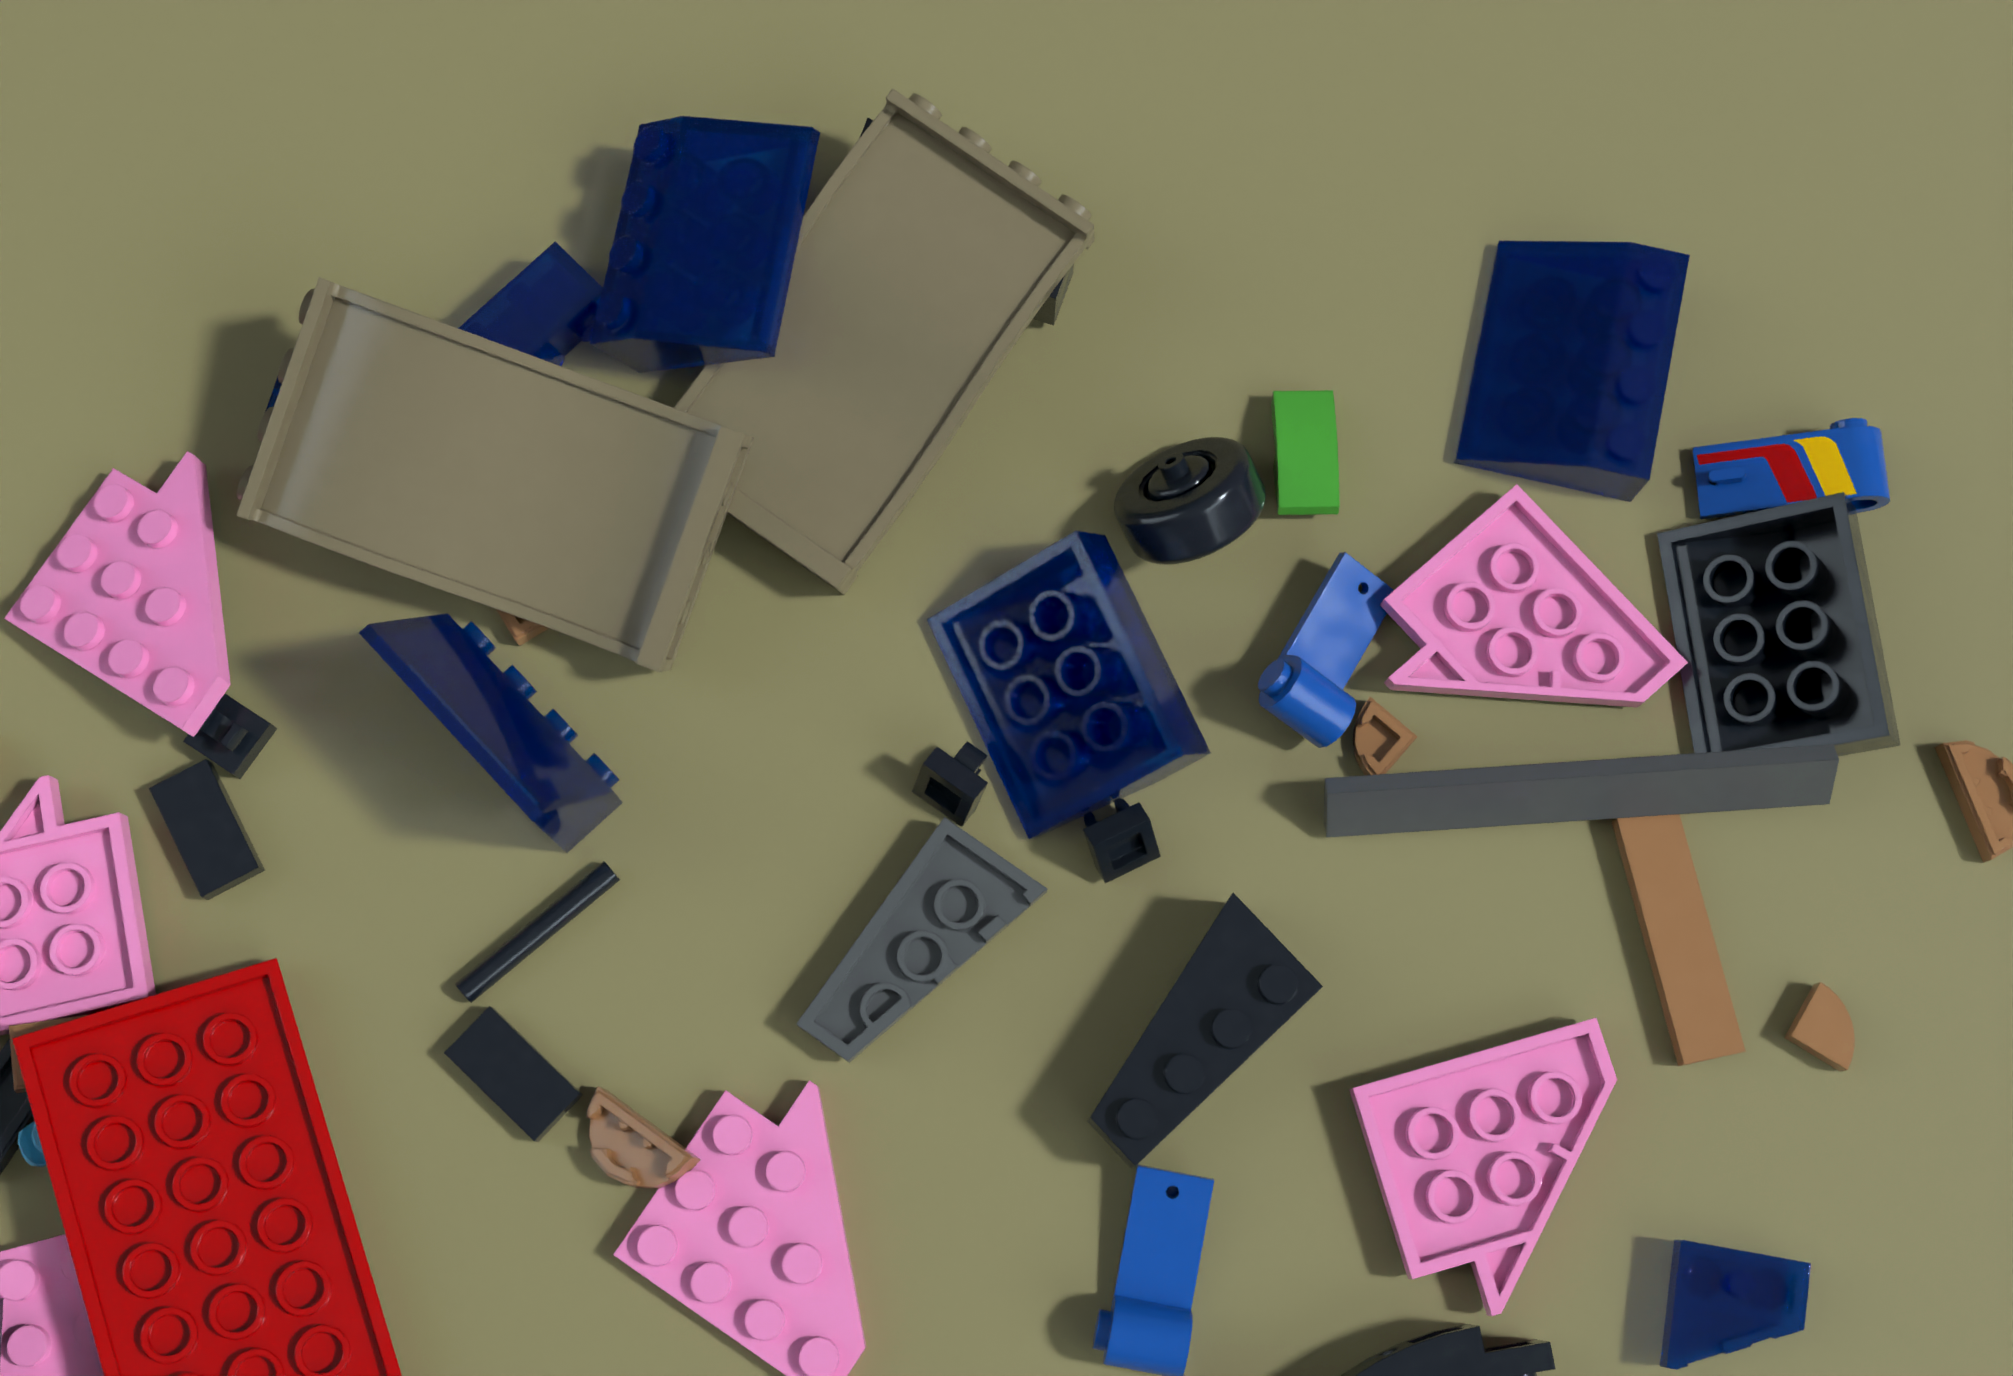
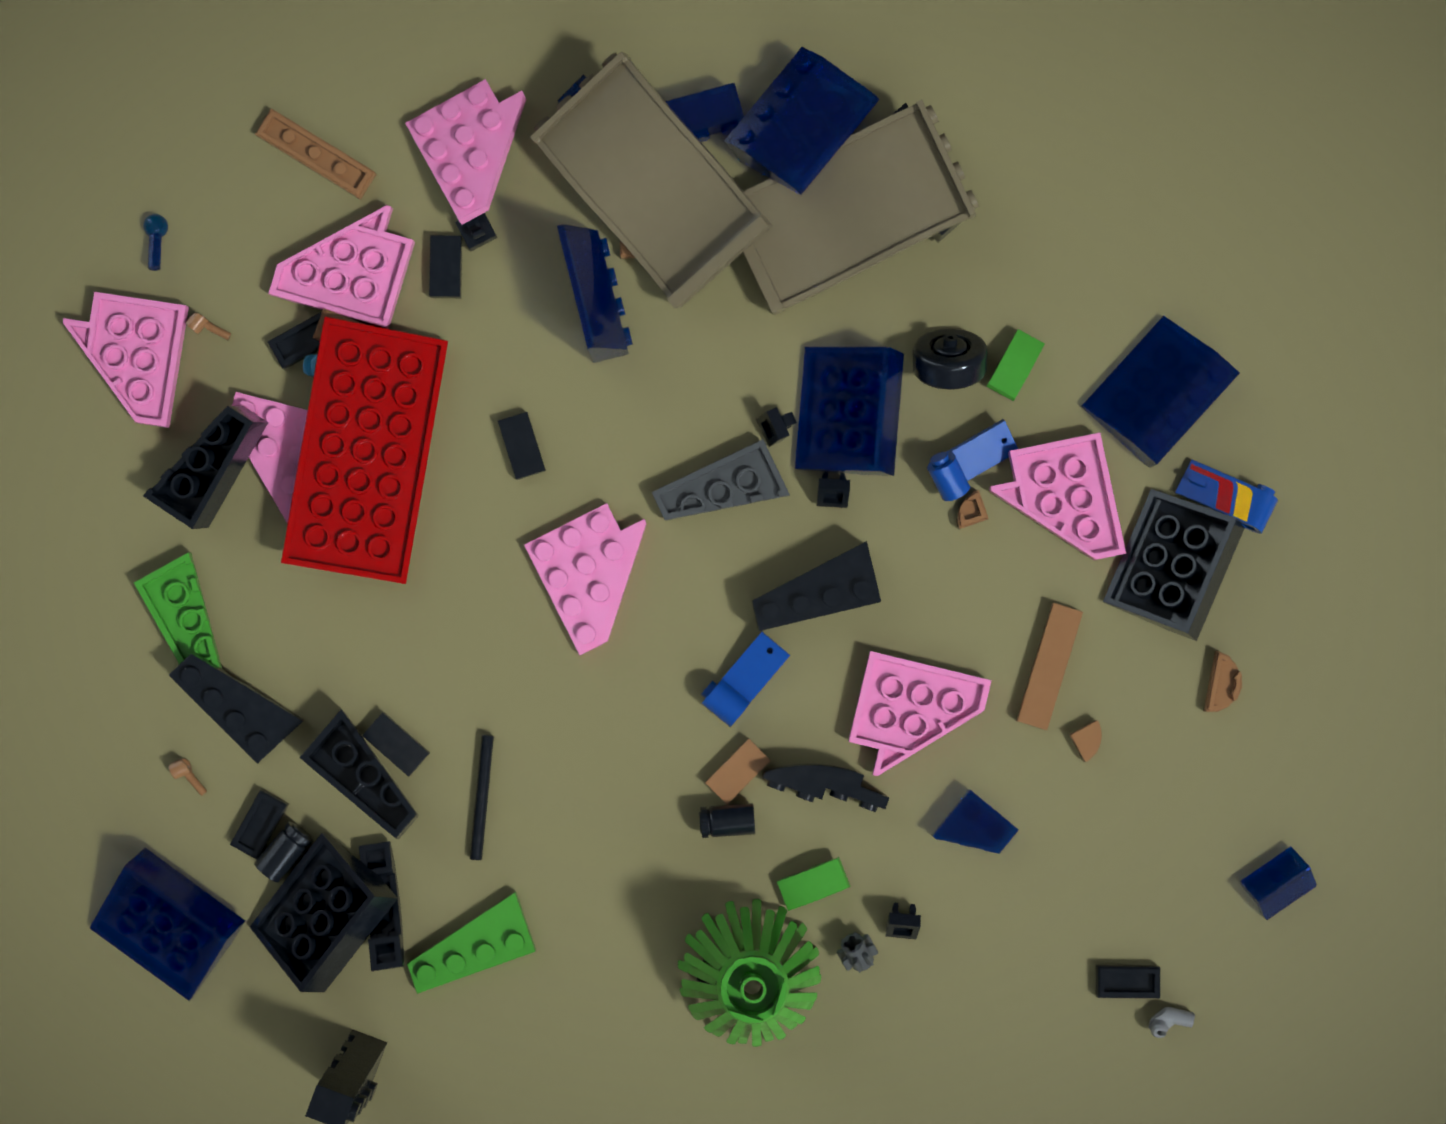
camera: 30 degrees right, 10 degrees up
(537, 932) = (563, 390): black bar -> none
(632, 1146) = (555, 504): medium nougat tile -> none
(1580, 790) = (1043, 581): dark grey tile -> none

